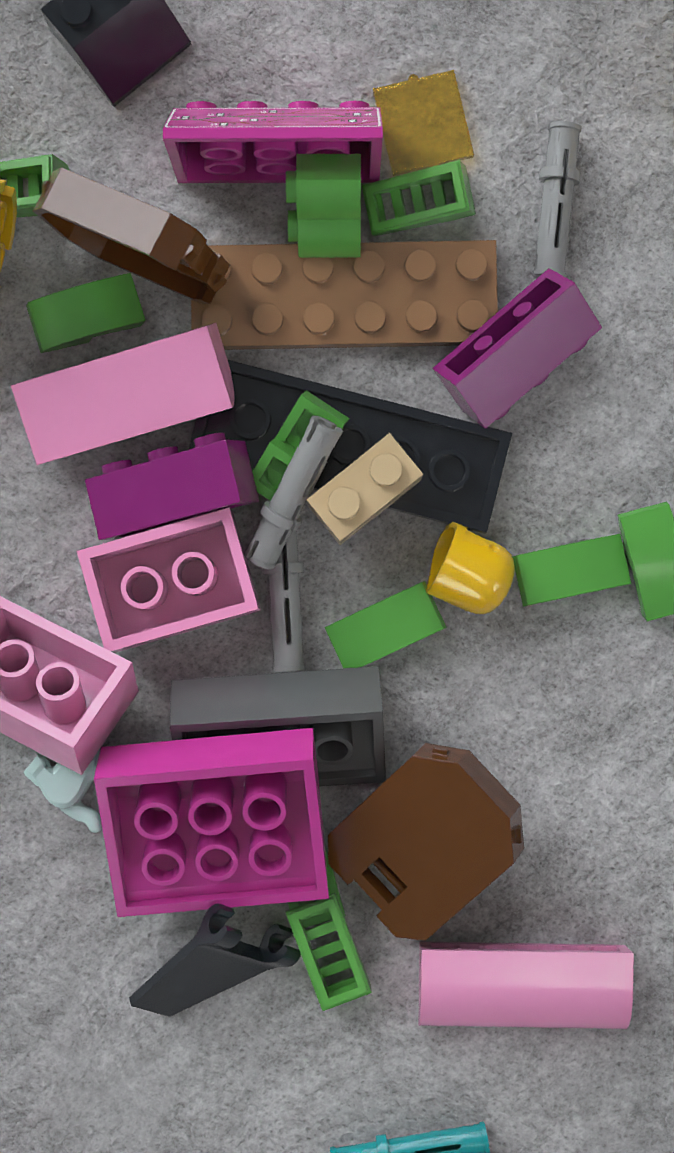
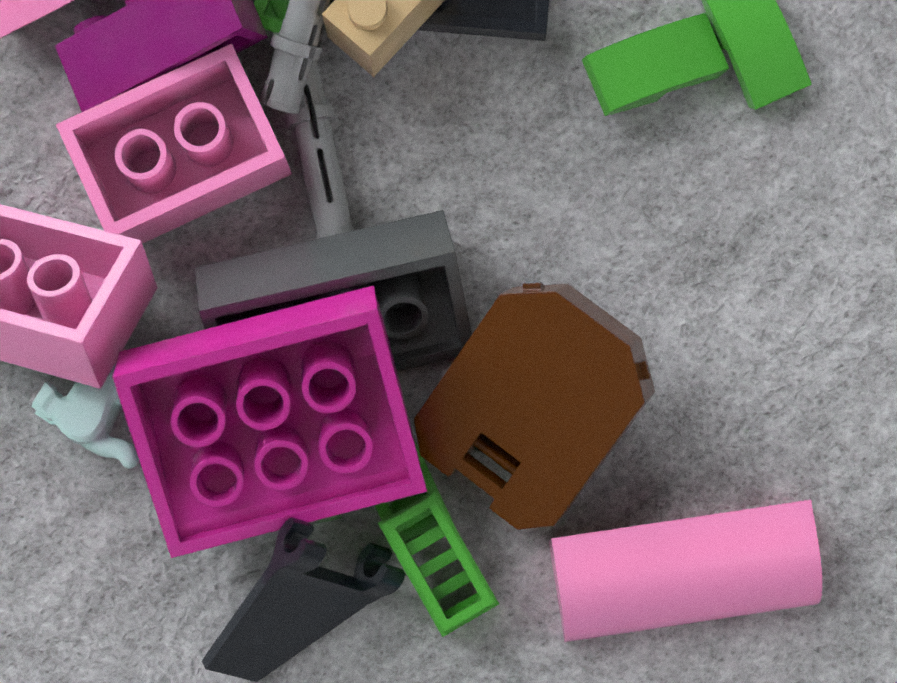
camera: 10 degrees left, 5 degrees down
(385, 627) = (445, 165): bright green slope -> none
(469, 570) = (534, 80): yellow helmet -> none

